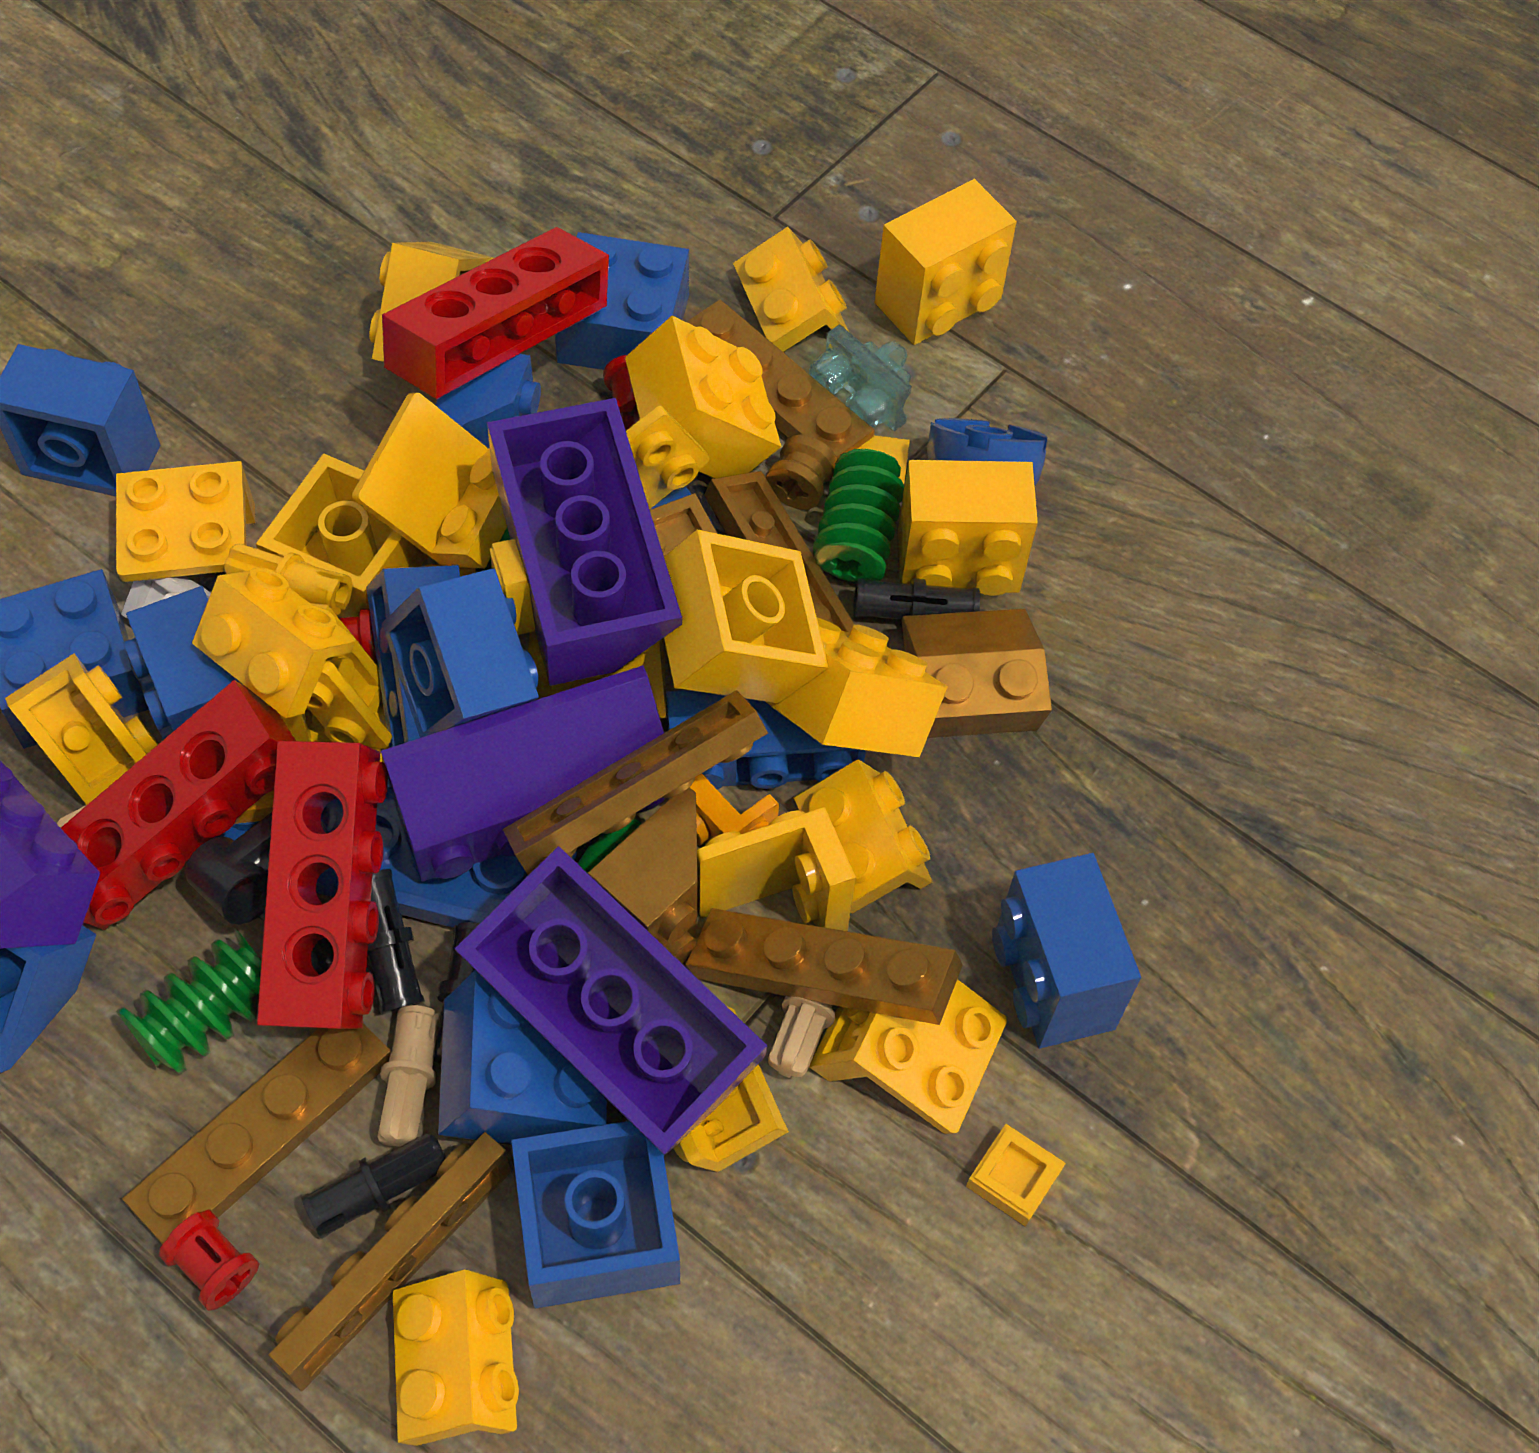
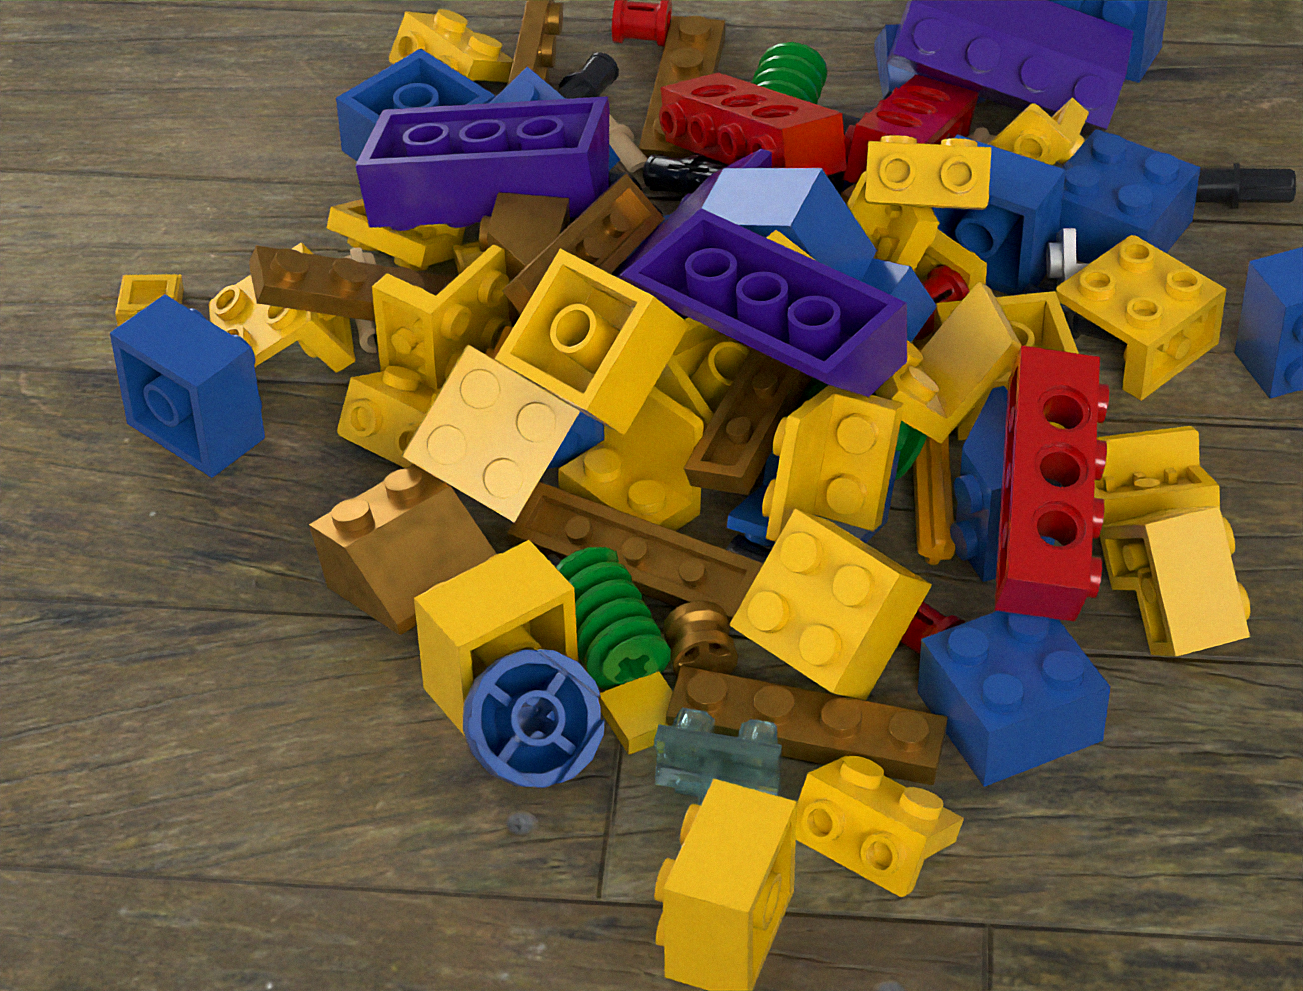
camera: 150 degrees right, 15 degrees down
(308, 581) = (1001, 276): yellow axle -> none
(350, 396) = (1153, 474): none -> yellow bracket

